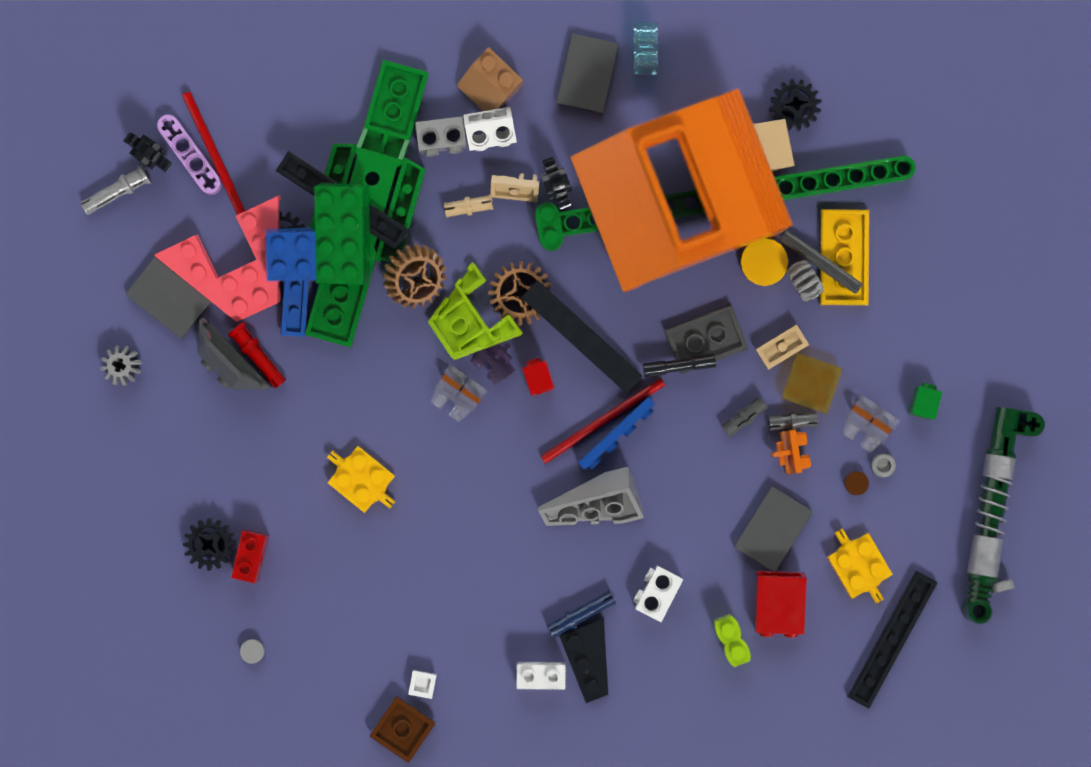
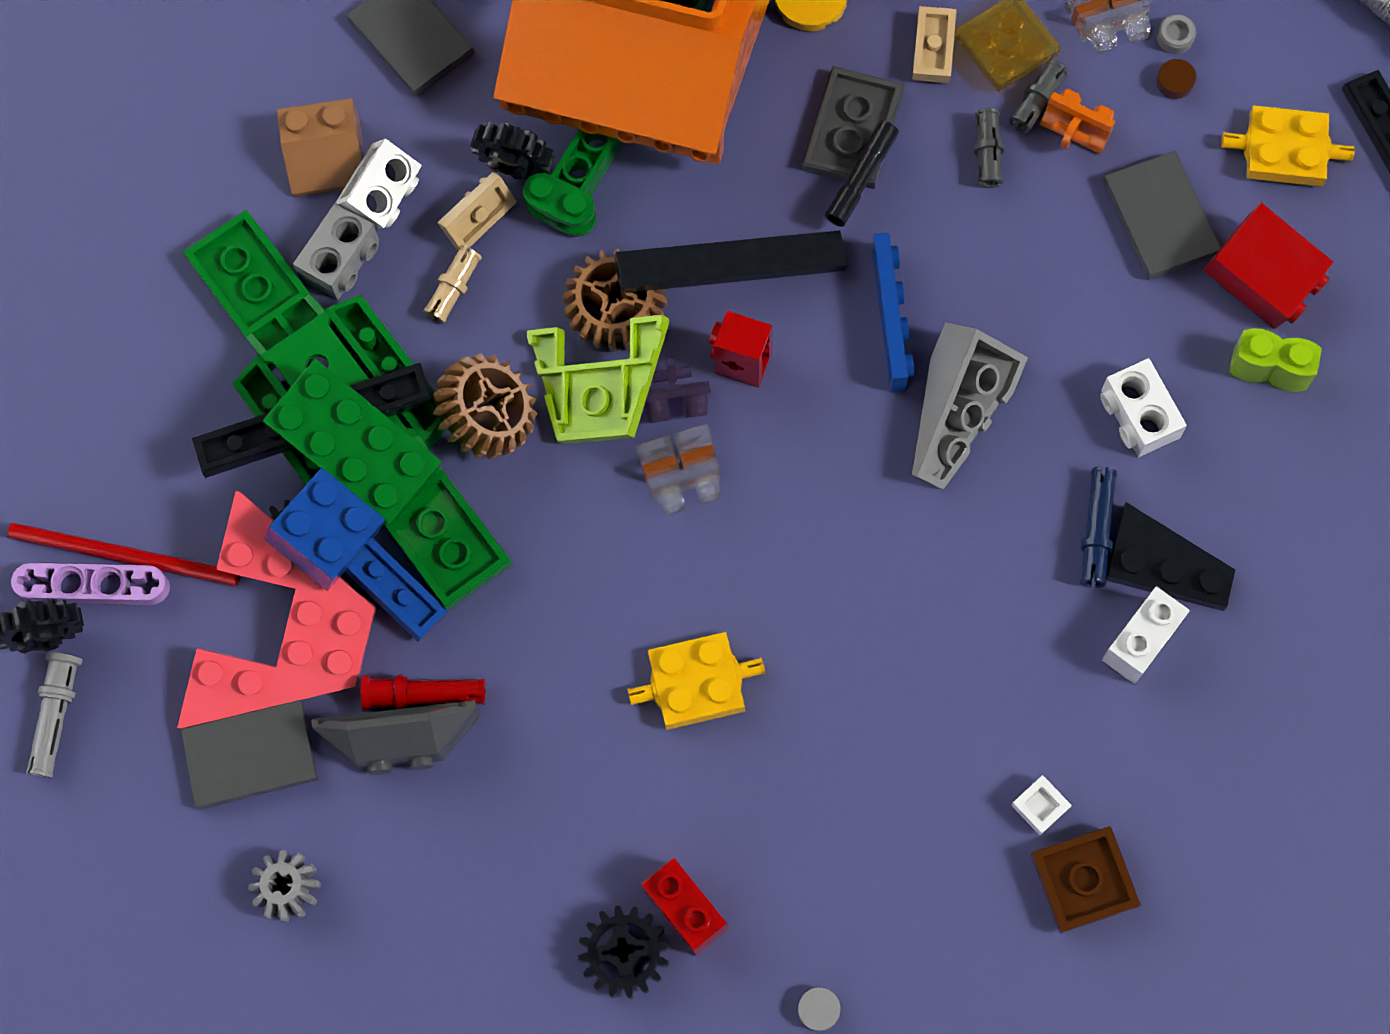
camera: 55 degrees left, 15 degrees down
(603, 420) = (859, 322): red piece -> none

